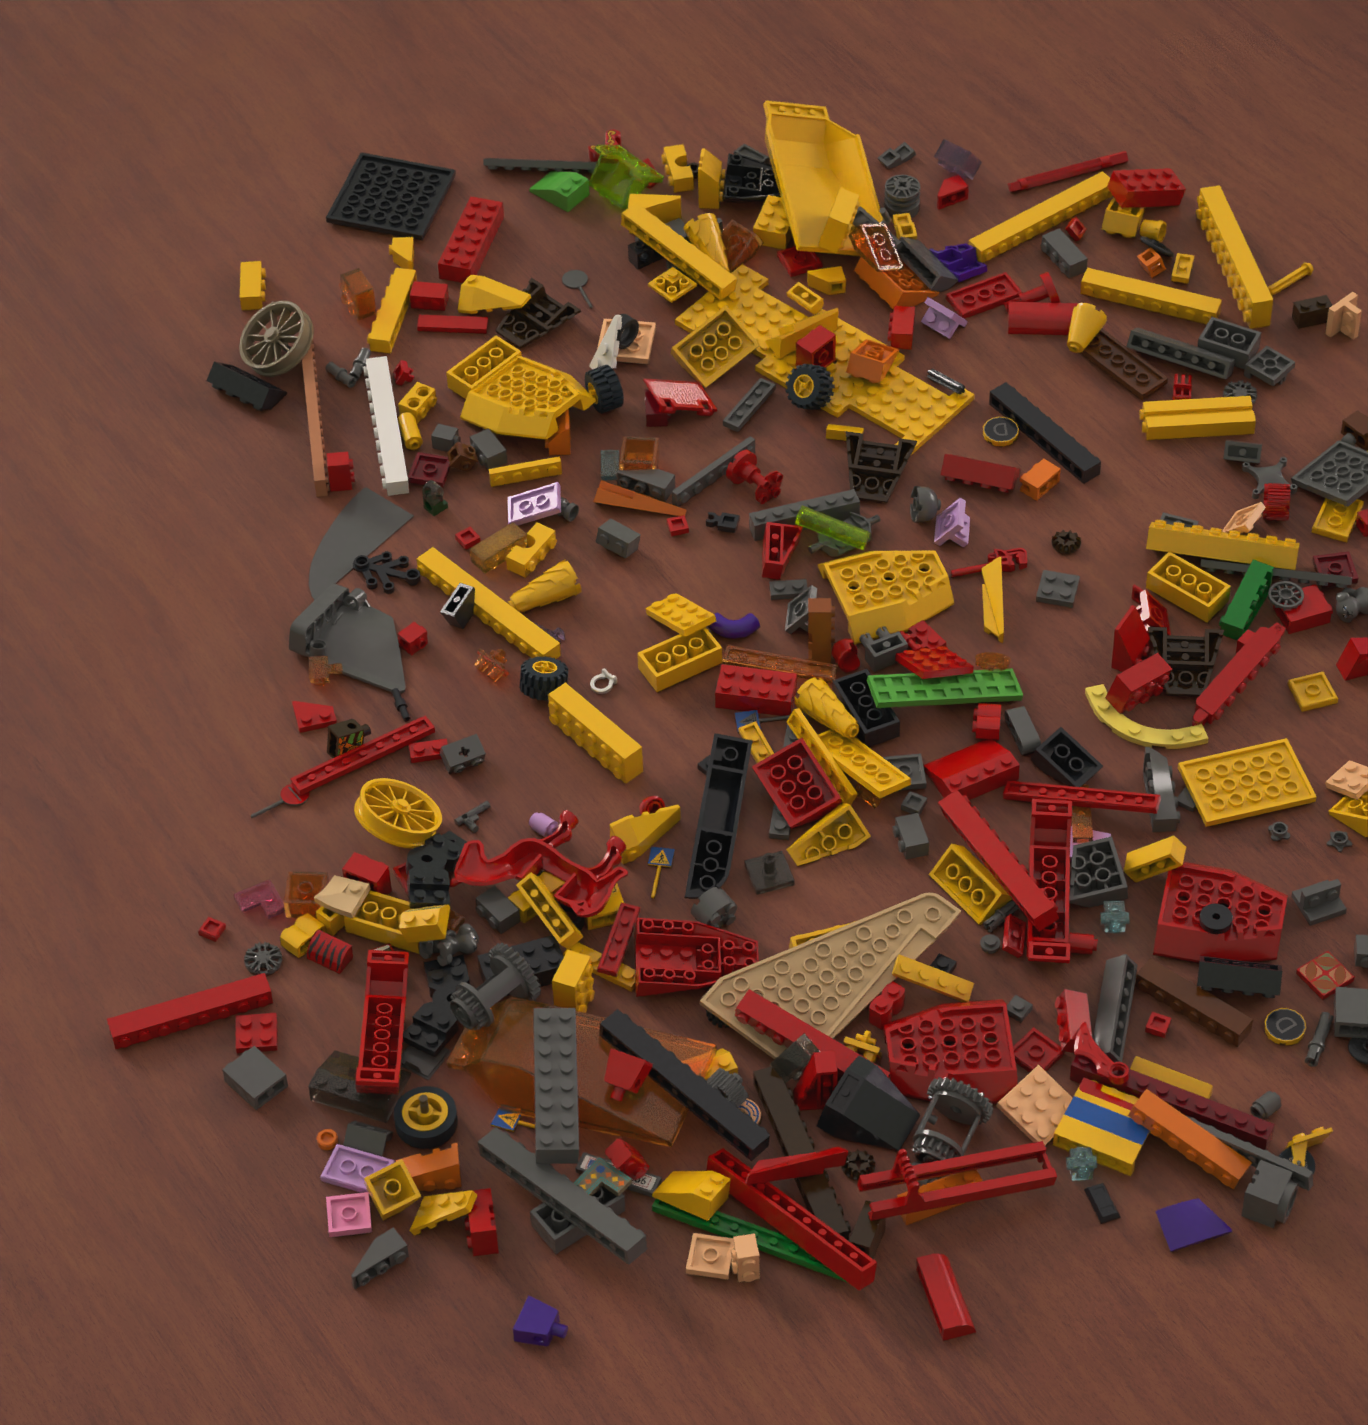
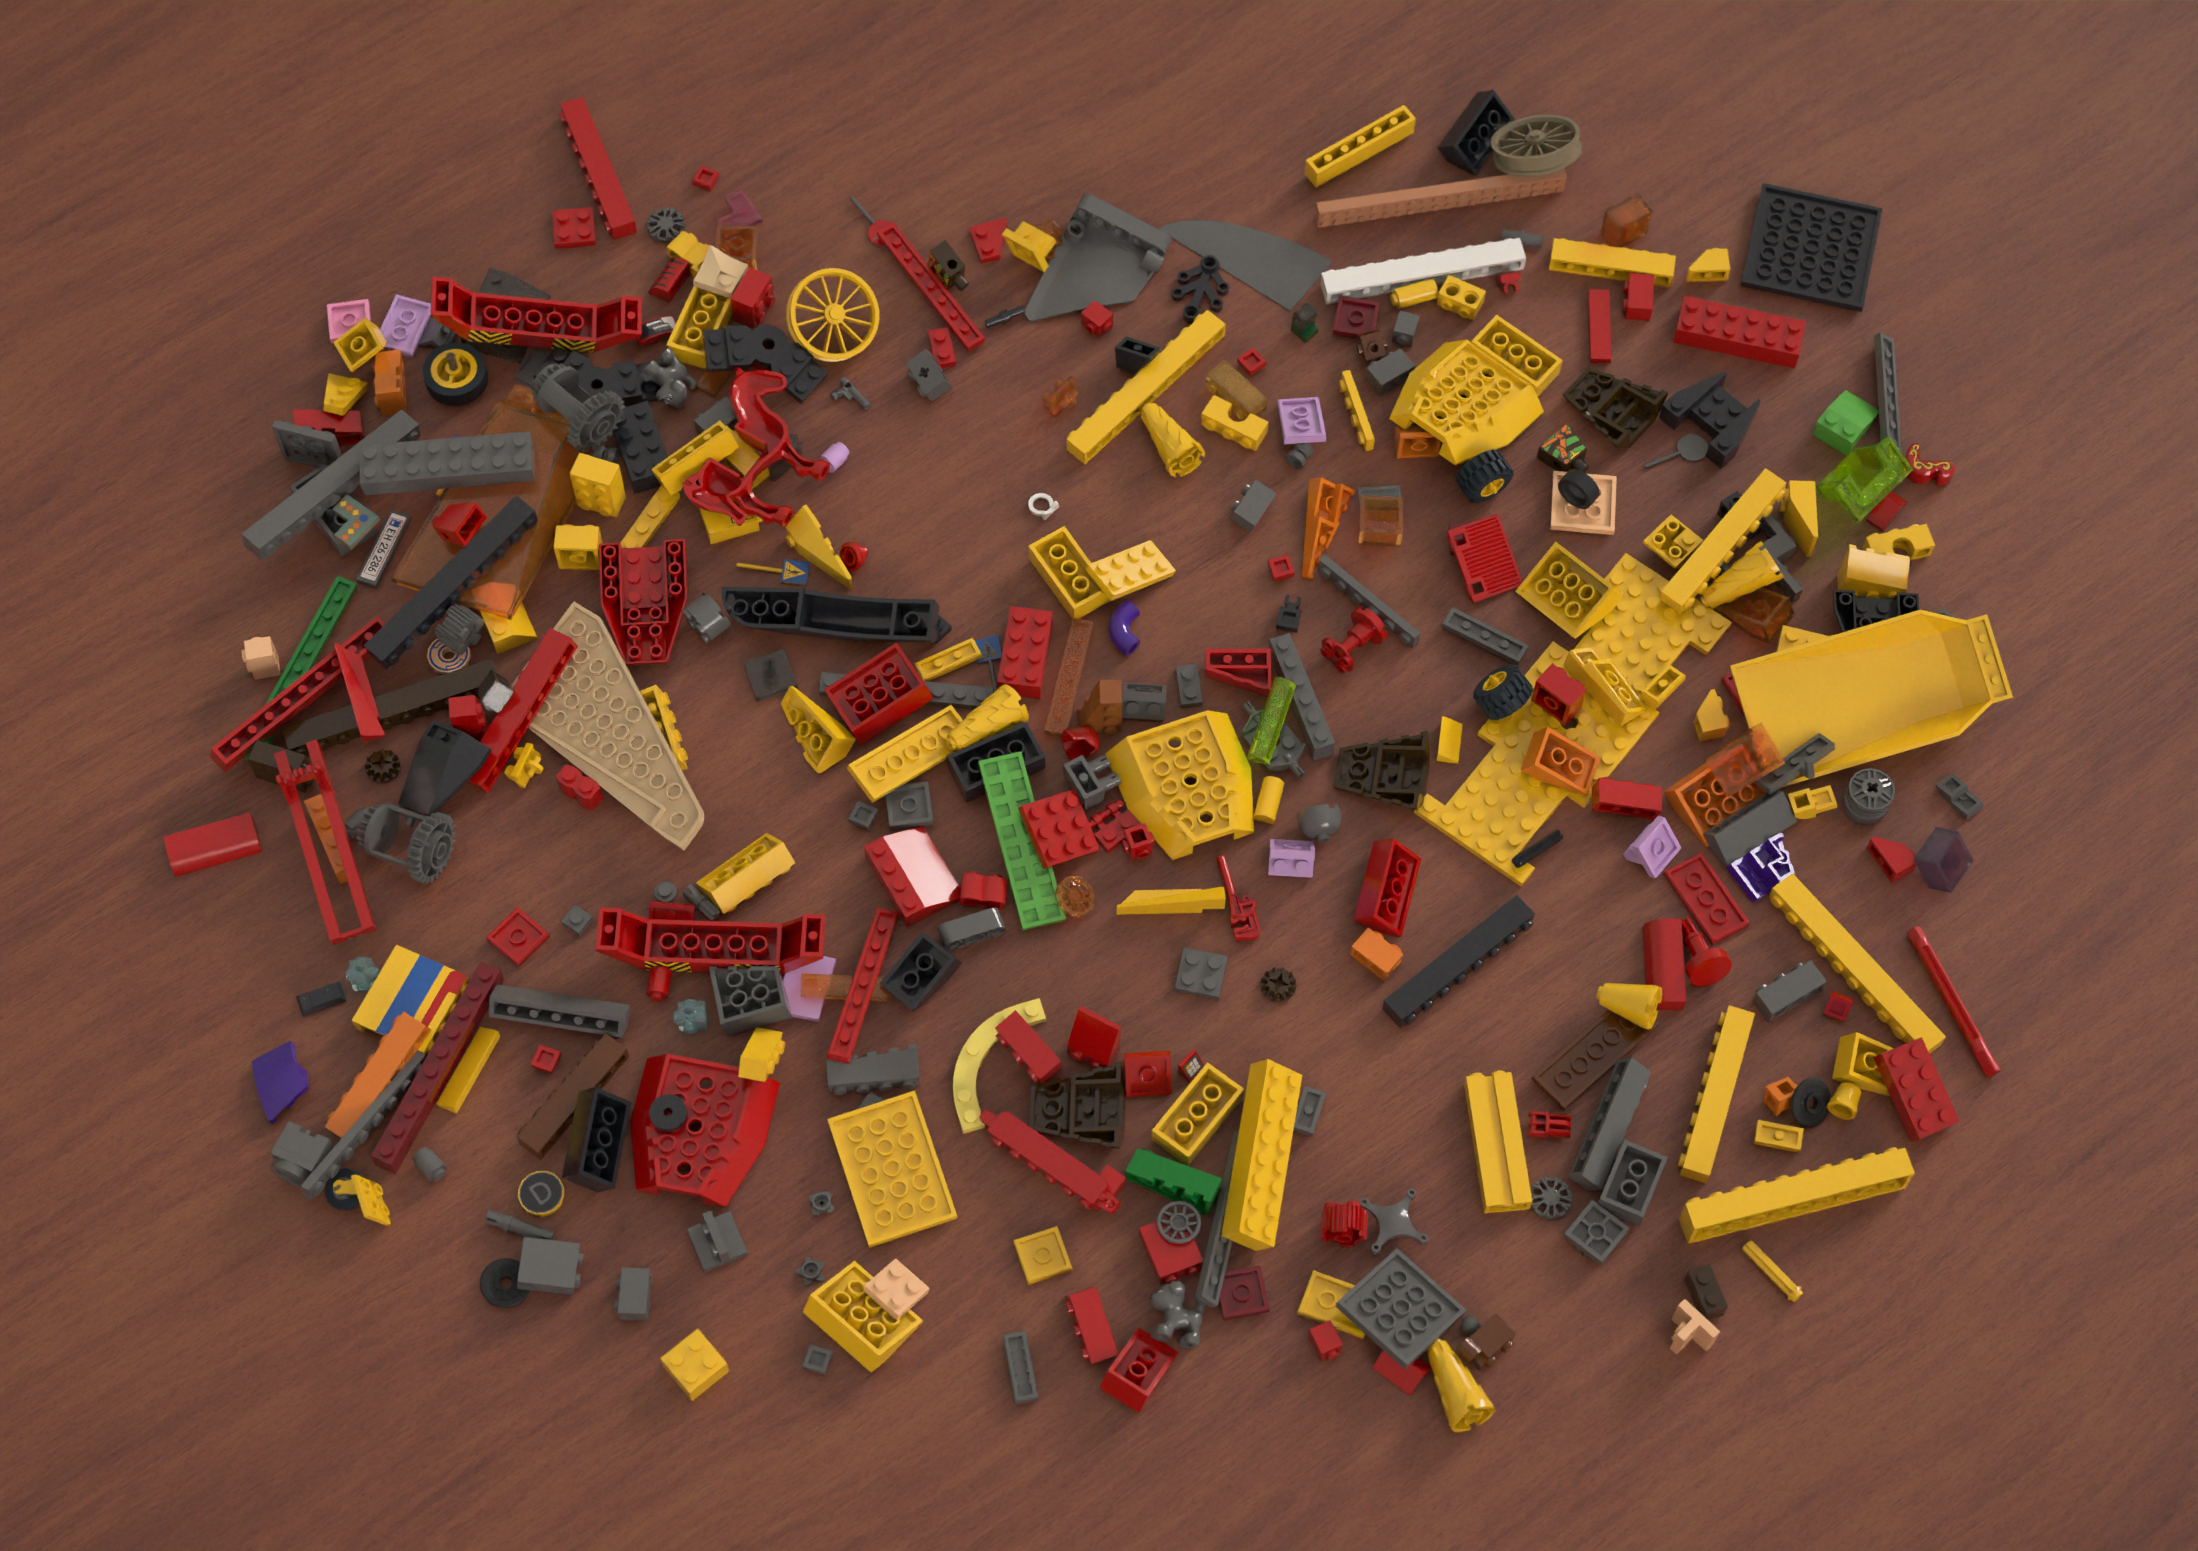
camera: 85 degrees right, 15 degrees up
(252, 285) = (1640, 121): yellow brick -> none
(253, 456) = (1360, 146): none -> yellow brick
(255, 1077) = (514, 228): dark grey brick -> none
(334, 675) = (1029, 245): none -> yellow bracket
(339, 471) = (1337, 227): red brick -> none
(340, 374) = (1502, 221): dark grey pin -> none
(382, 1254) = (300, 350): dark grey slope -> none
(424, 923) = (677, 343): yellow slope -> none
(484, 293) = (1636, 353): yellow wedge -> none
(510, 1224) = (306, 444): none -> dark grey plate
(538, 1323) = (210, 485): dark purple torso -> none
(542, 676) = (1032, 441): black wheel -> none
(552, 256) = (1714, 413): none -> black wedge
(555, 633) = (1103, 452): bar -> none
(576, 348) = (1564, 451): none -> torso
(595, 733) = (953, 494): yellow brick -> none
(608, 348) = (1543, 476): white wing -> none
(618, 939) = (668, 528): red tile -> none
(627, 1159) = (378, 544): red brick -> none
(635, 1000) = (577, 547): none -> yellow brick
(650, 482) = (1345, 541): dark grey slope -> none
(694, 1192) = (346, 608): yellow slope -> none
(710, 1256) = (282, 628): light nougat plate -> none
(803, 729) = (936, 707): yellow tile -> none
(839, 221) = (1784, 710): yellow brick -> none
(898, 541) = (1269, 800): none -> yellow brick
(911, 836) = (814, 812): dark grey brick -> none
(932, 978) = (605, 827): yellow plate -> none
(942, 617) = (1138, 841): none -> red brick
(944, 963) = (637, 845): black plate -> none
(971, 1058) = (547, 859): red wedge -> none
(998, 860) = (759, 889): red brick -> none
(1000, 431) = (1462, 913): tile -> none
(1036, 1105) = (439, 931): light nougat plate -> none
(1072, 1012) = (547, 969): red brick -> none
(1088, 1048) = (494, 975): red piece -> none
(1242, 451) = (1435, 1189): dark grey brick -> none
(1245, 518) = (1310, 1182): light nougat plate -> none
(1324, 975) = (612, 1241): tile -> none

